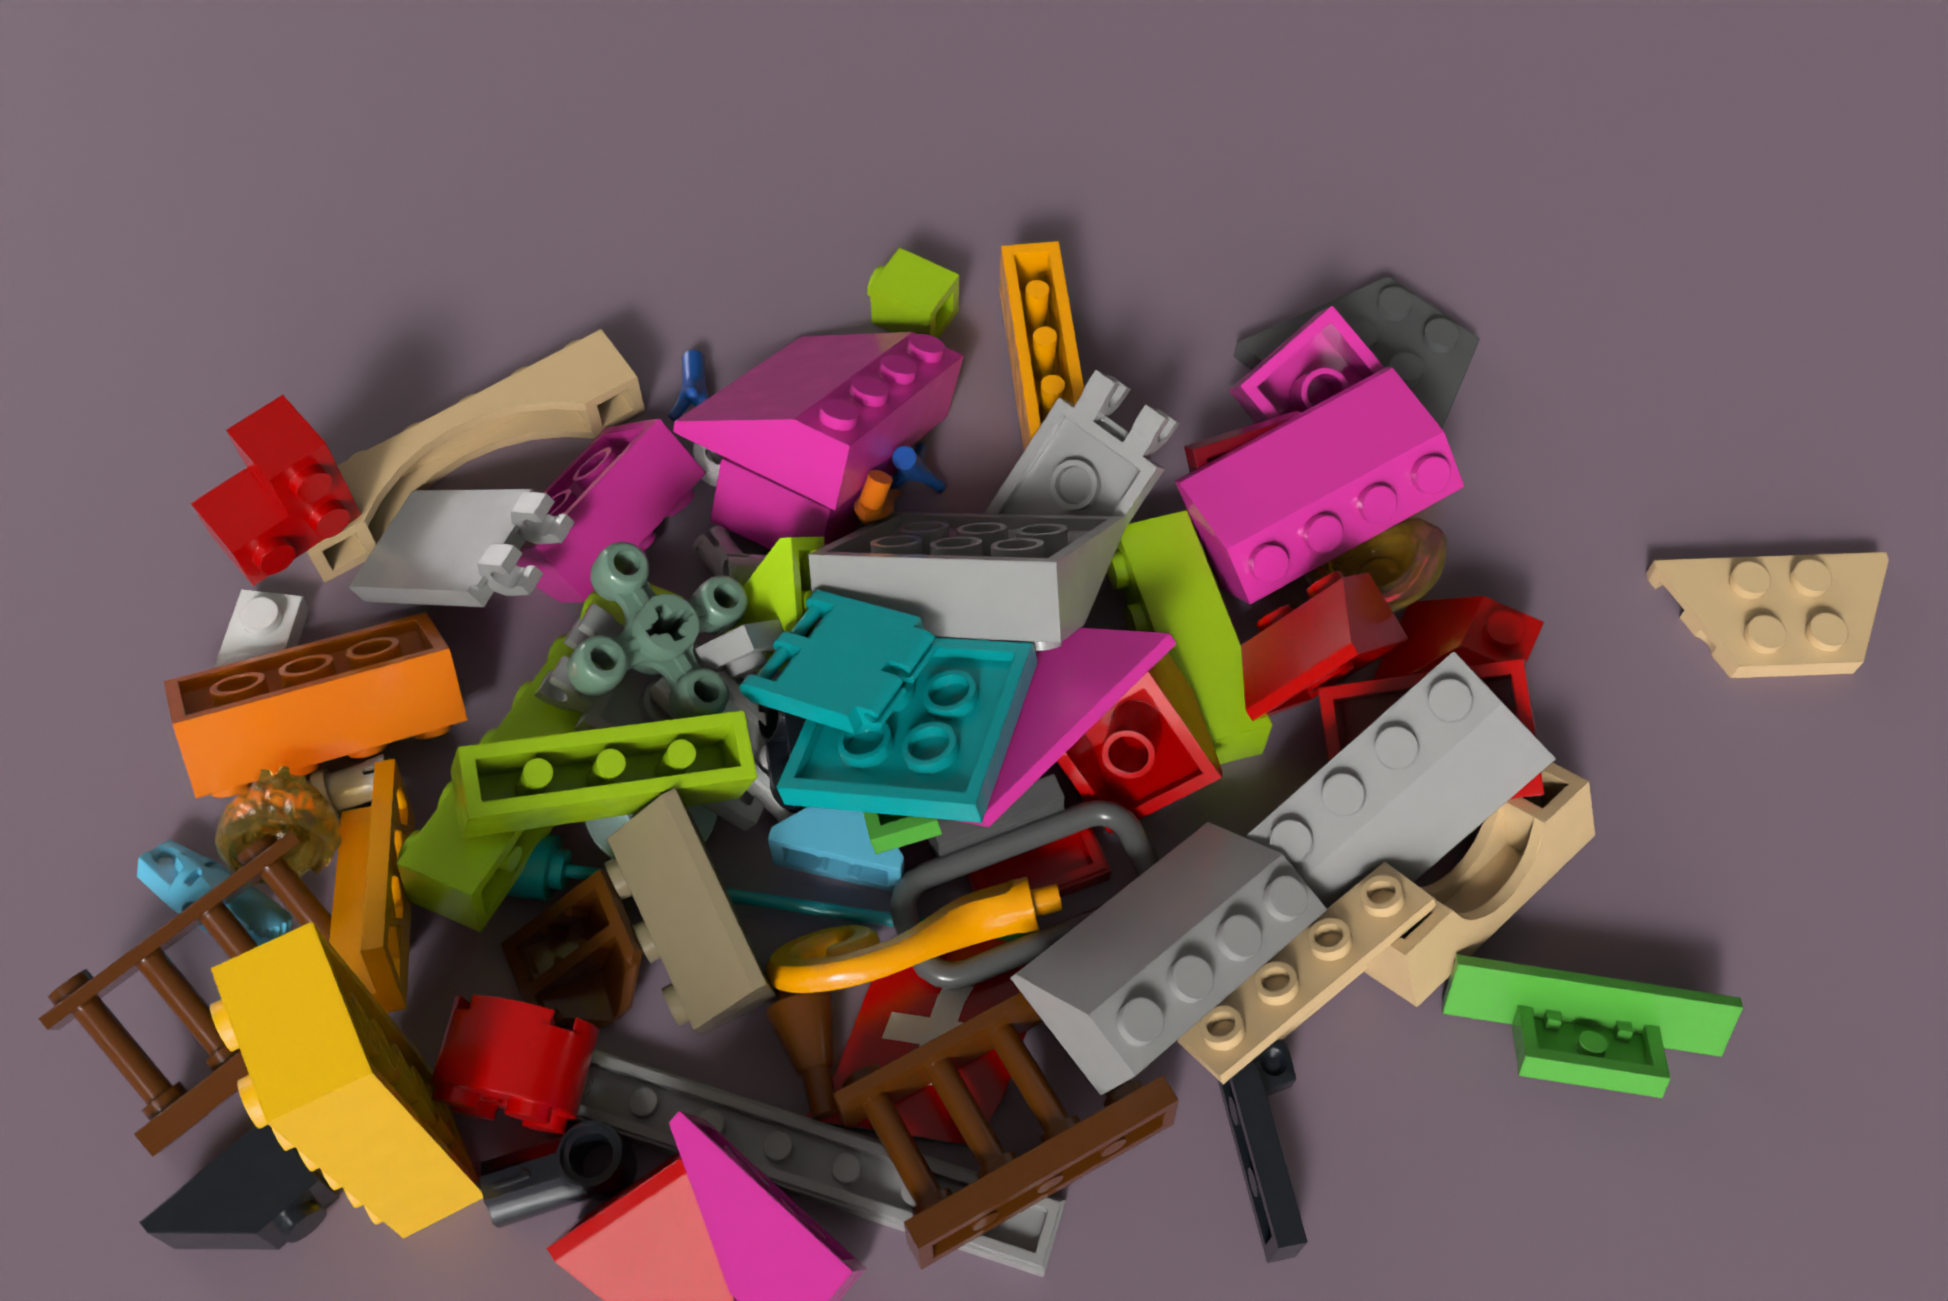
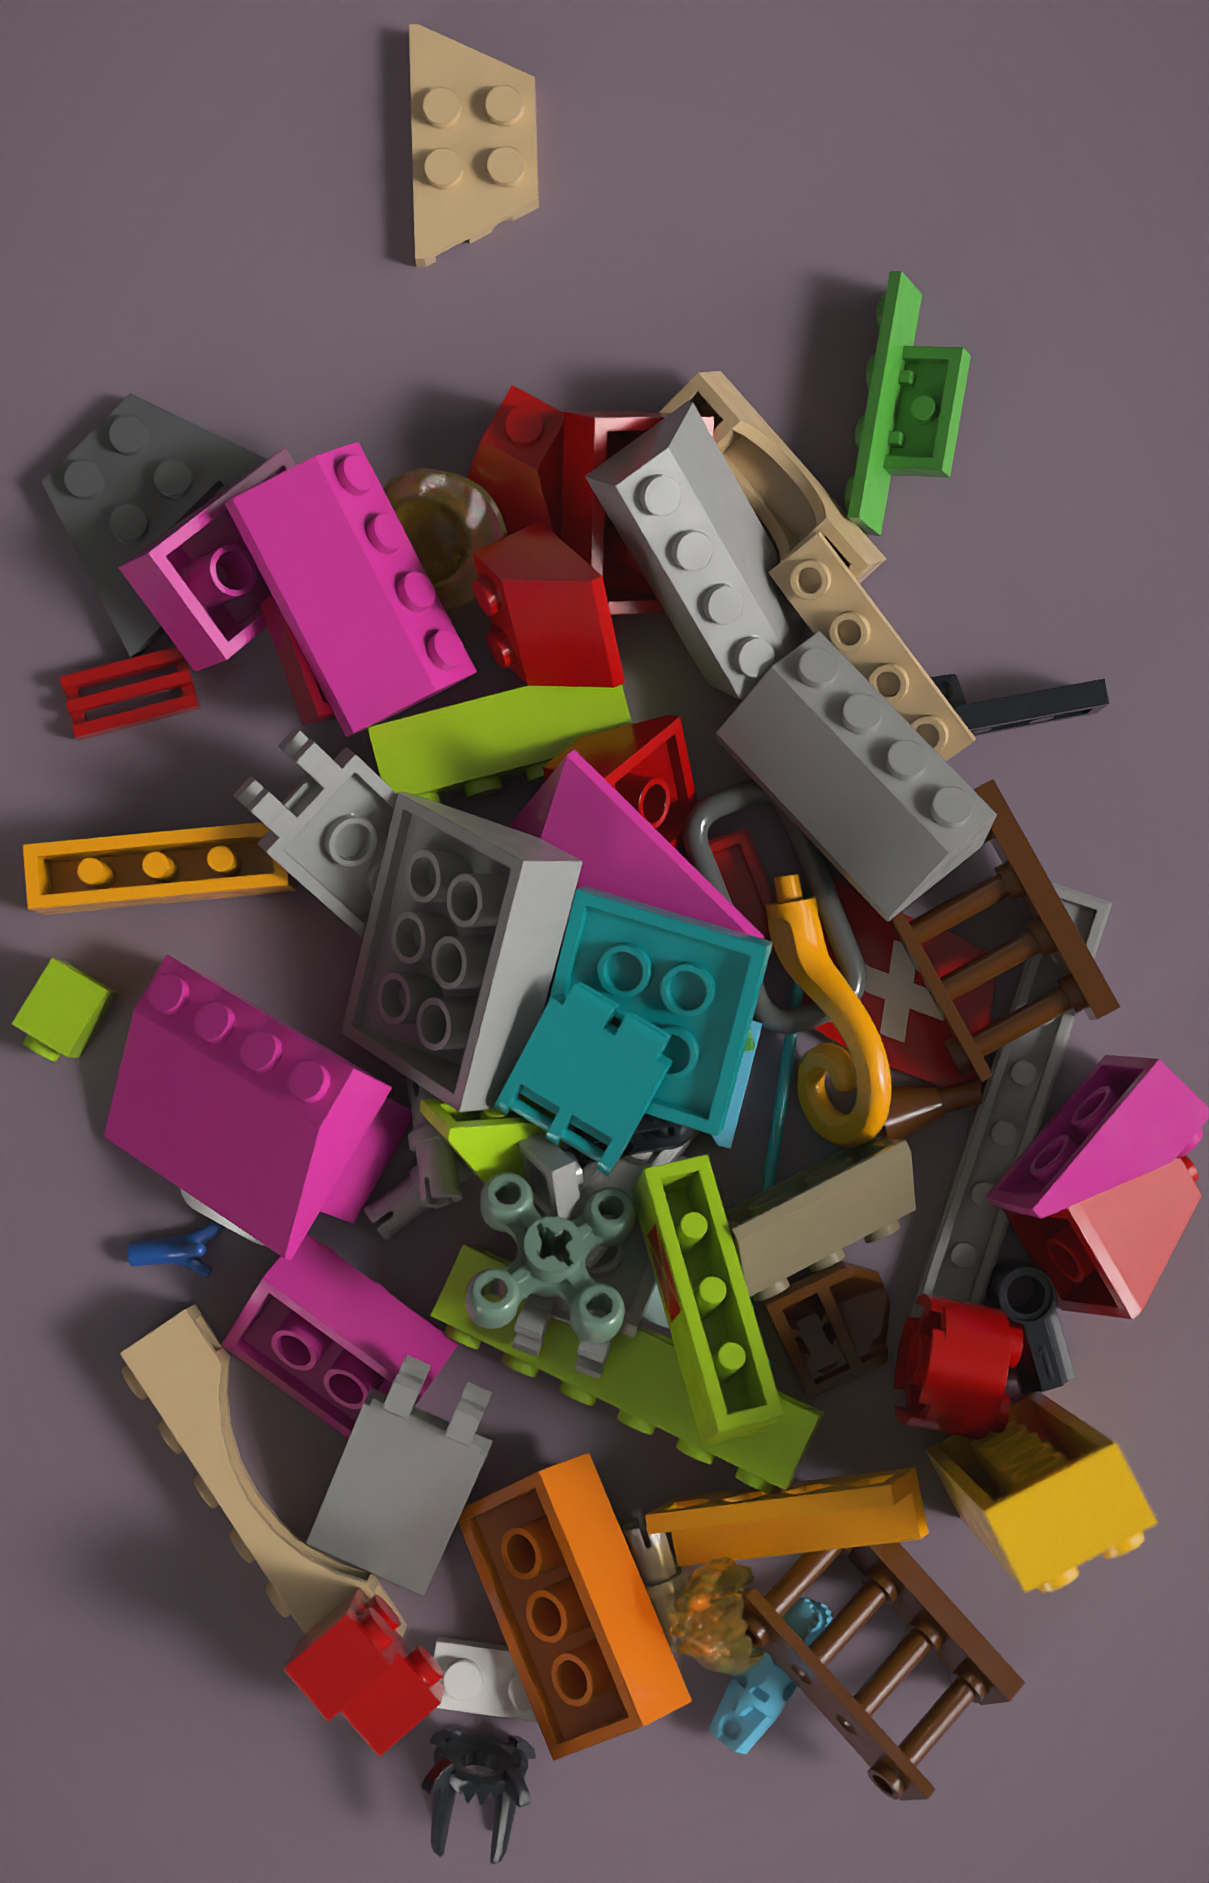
camera: 90 degrees left, 25 degrees up
(164, 597) = (505, 1783): none -> black piece
(244, 1200) = (1059, 1617): black slope -> none
(876, 498) = (350, 1046): orange bar -> none
(913, 468) = (293, 1008): blue bar -> none
(1222, 336) = (122, 669): none -> red tile

